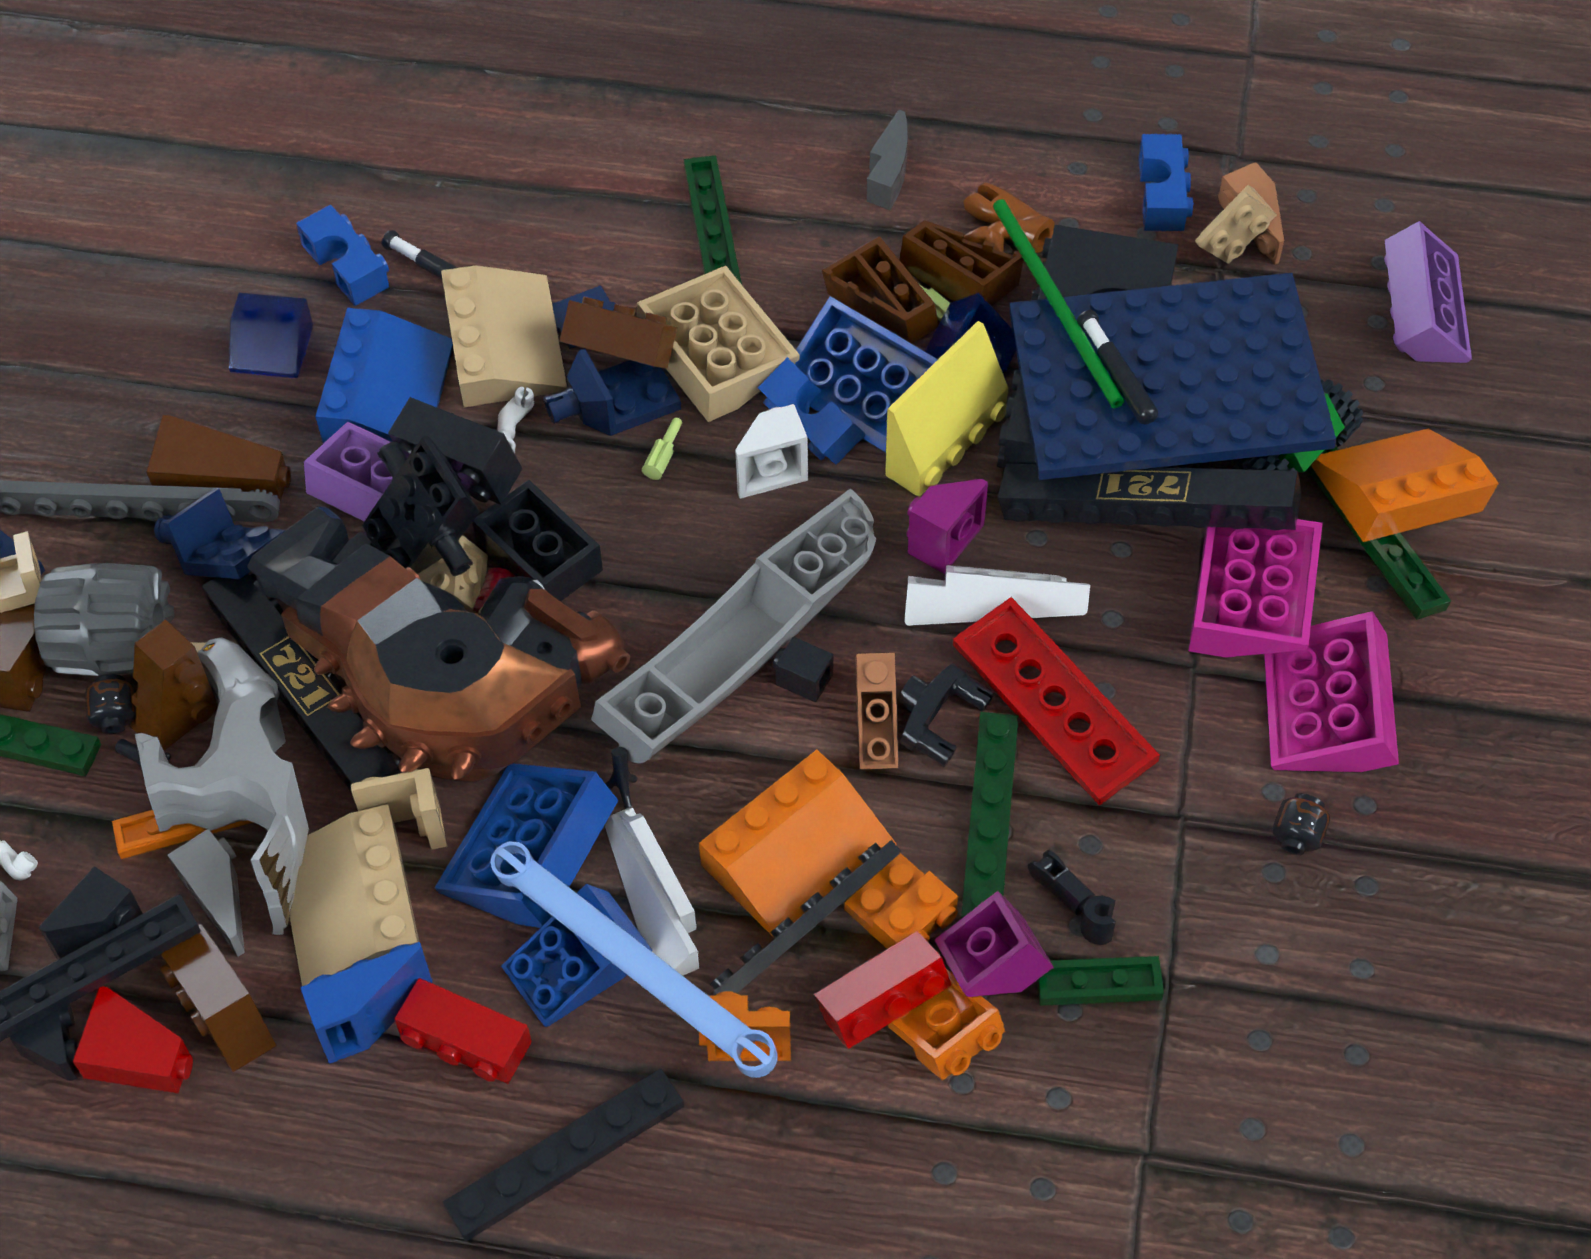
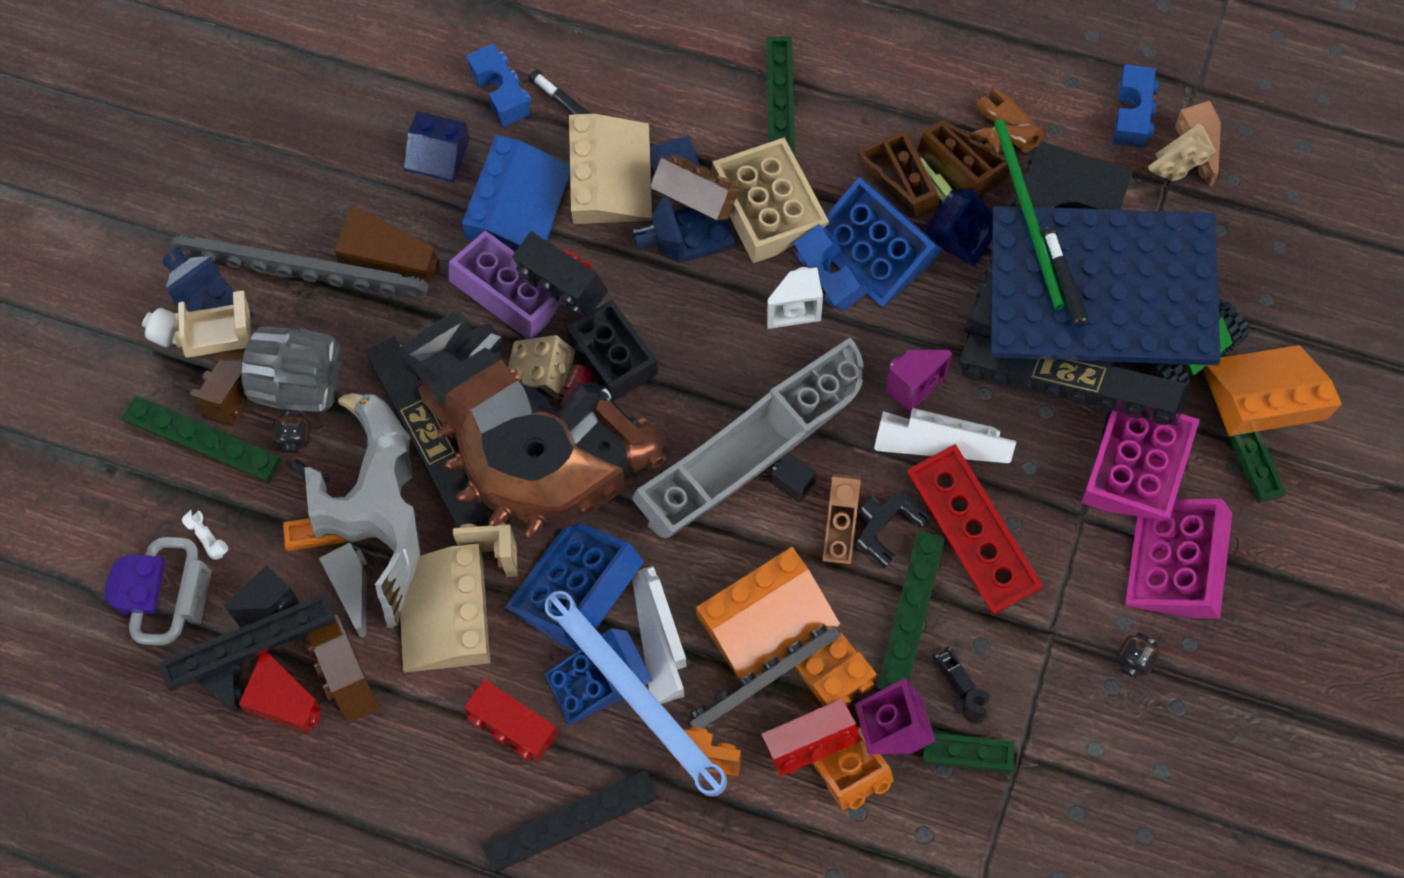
camera: 10 degrees right, 10 degrees up
(171, 686) = (333, 430): reddish brown wedge -> none
(209, 540) = (376, 315): dark blue plate -> none
(362, 1001) = (441, 692): blue slope -> none
(421, 510) = (528, 321): black slope -> none
(514, 412) = (605, 239): white arm -> none
(621, 775) = (648, 543): black bar -> none
(661, 452) = (715, 283): yellowish green axle -> none
(888, 163) = (924, 60): dark grey slope -> none
(945, 412) = (931, 287): light yellow slope -> none
(1426, 297) = (1321, 234): medium lavender slope -> none

